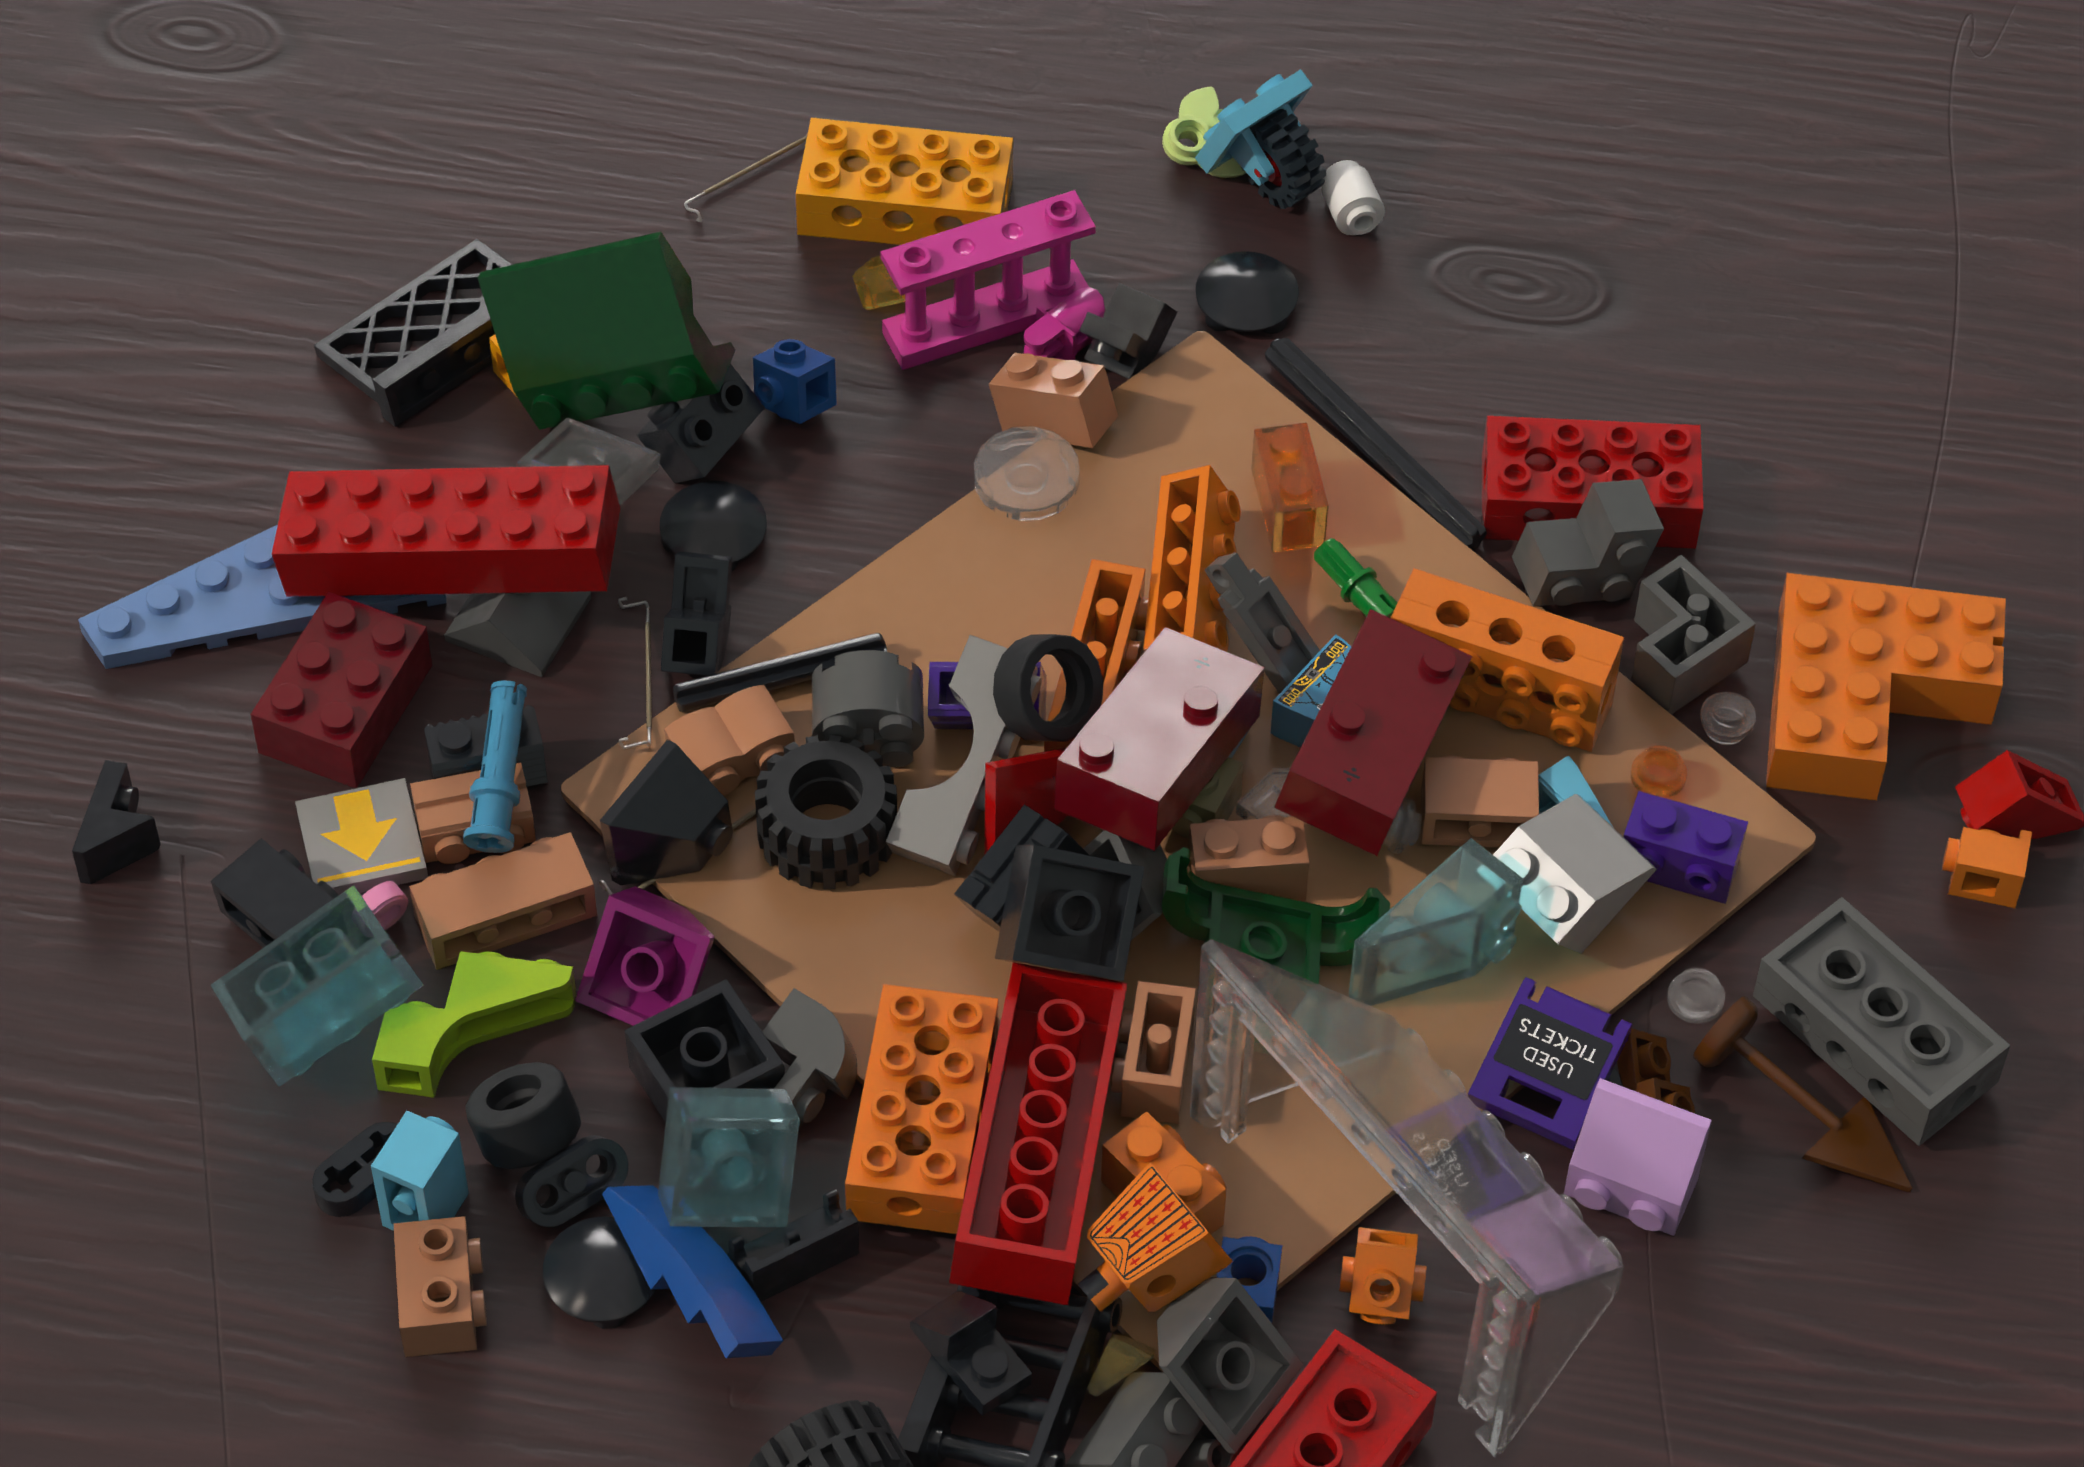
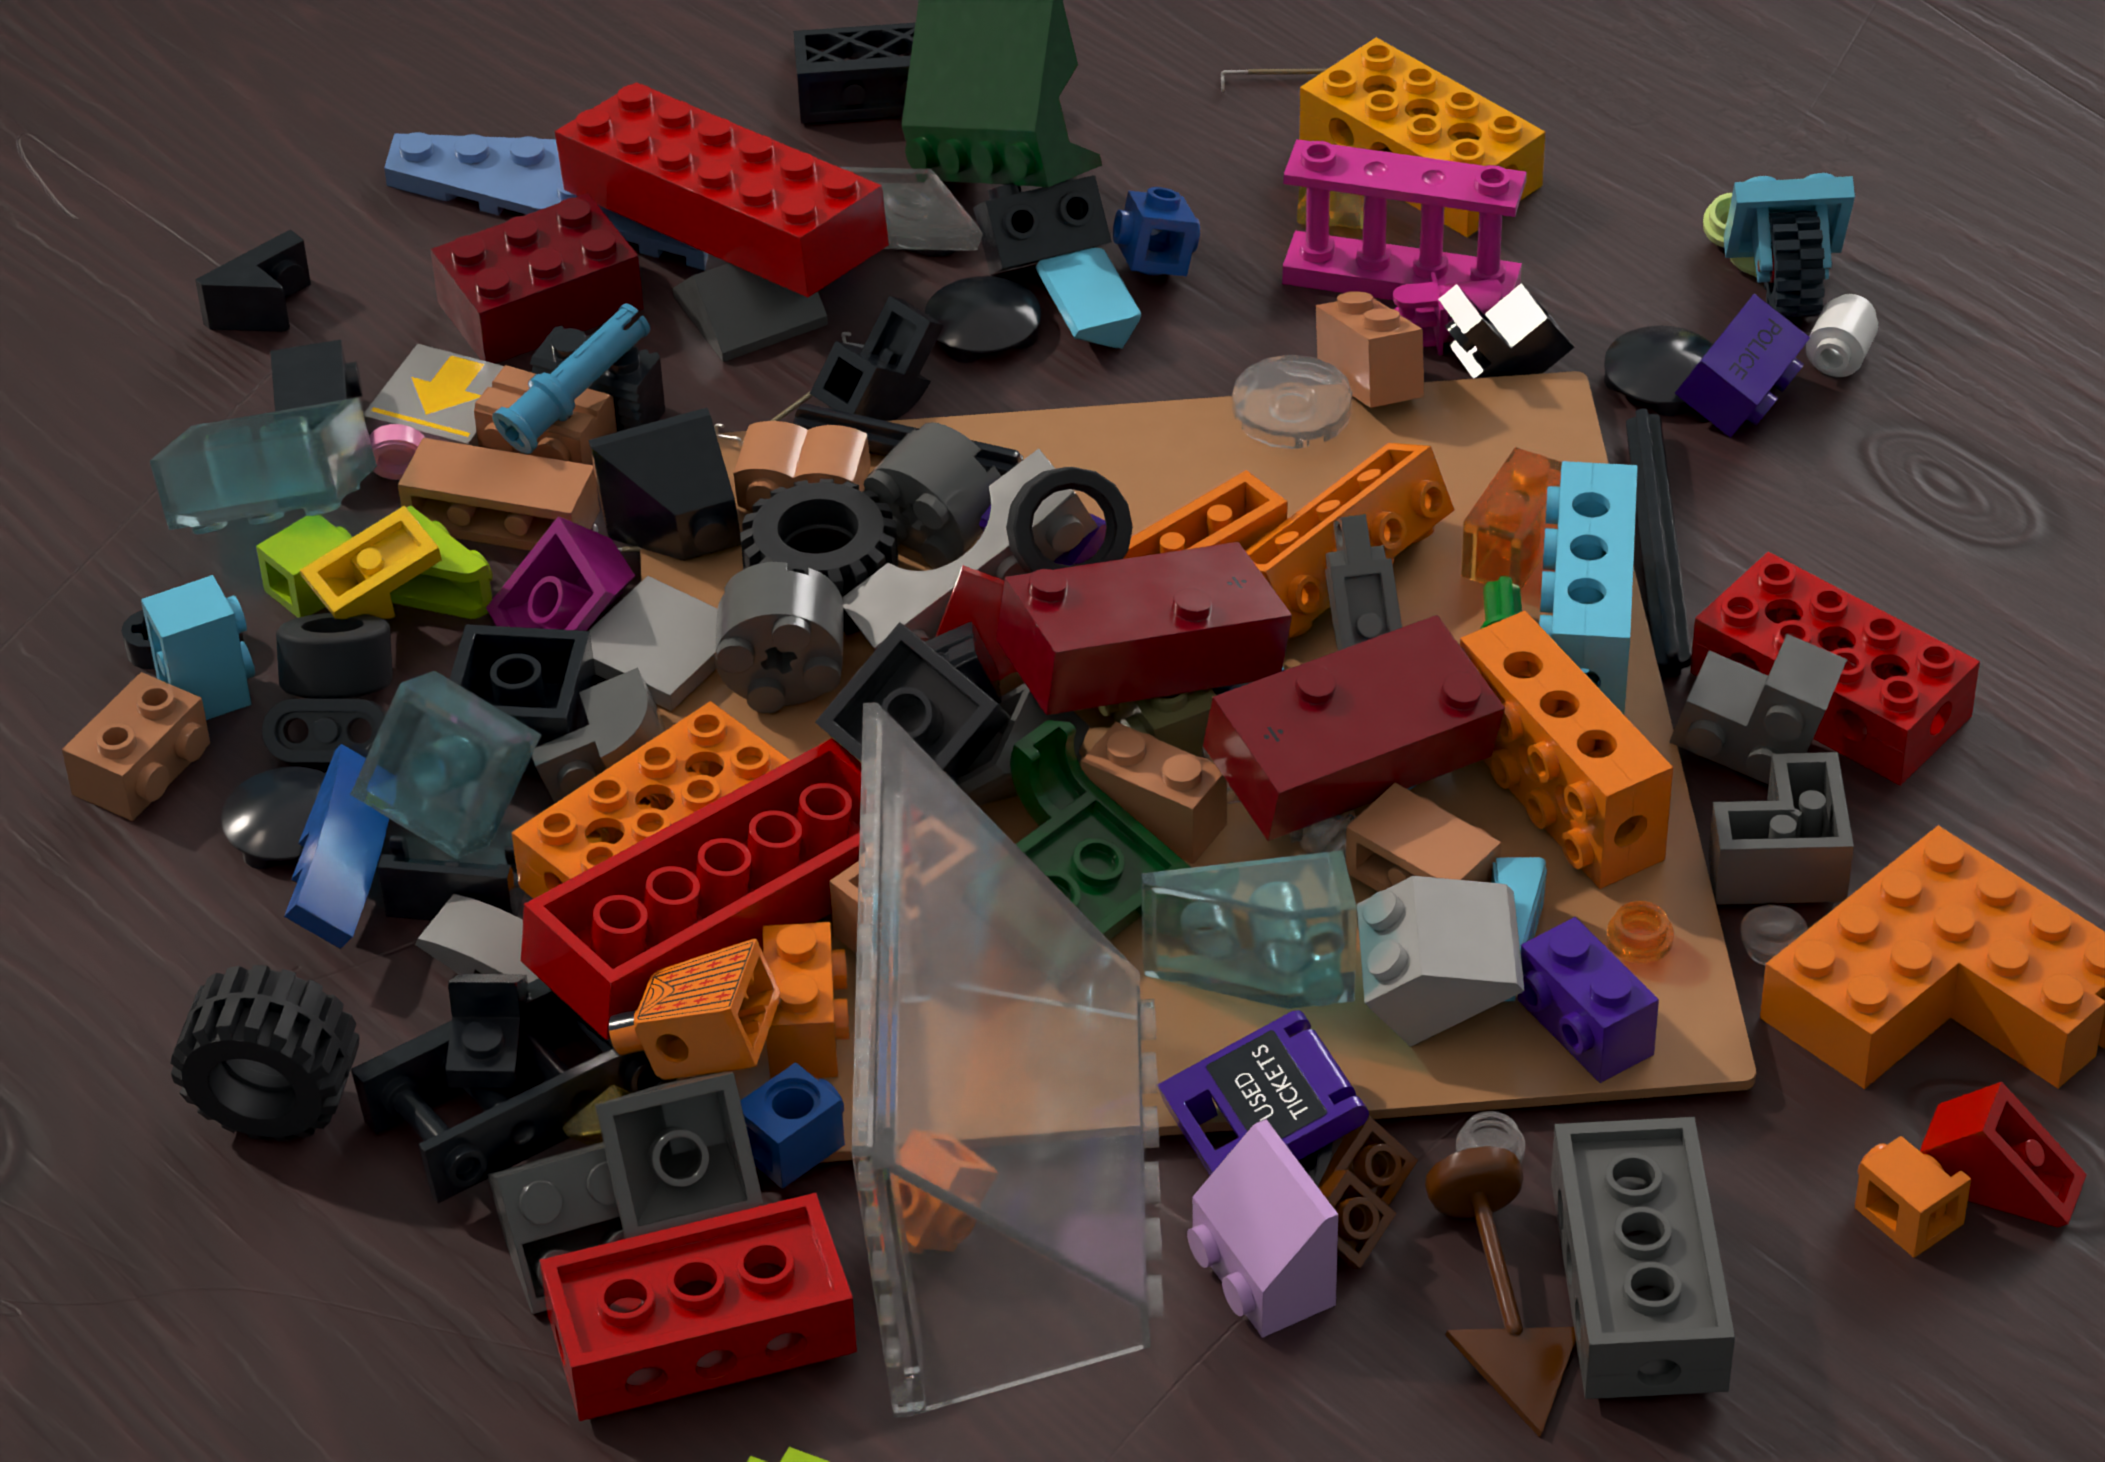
camera: 40 degrees right, 10 degrees down
(498, 1022) = (372, 564): none -> yellow slope
(761, 948) = (662, 635): none -> light grey tile
(787, 462) = (1090, 296): none -> medium azure slope
(873, 898) = (779, 636): none -> dark grey brick
(877, 1277) = (475, 938): none -> light grey slope
(1316, 264) = (1743, 366): none -> dark purple brick
(1403, 506) = (1592, 570): none -> medium azure brick

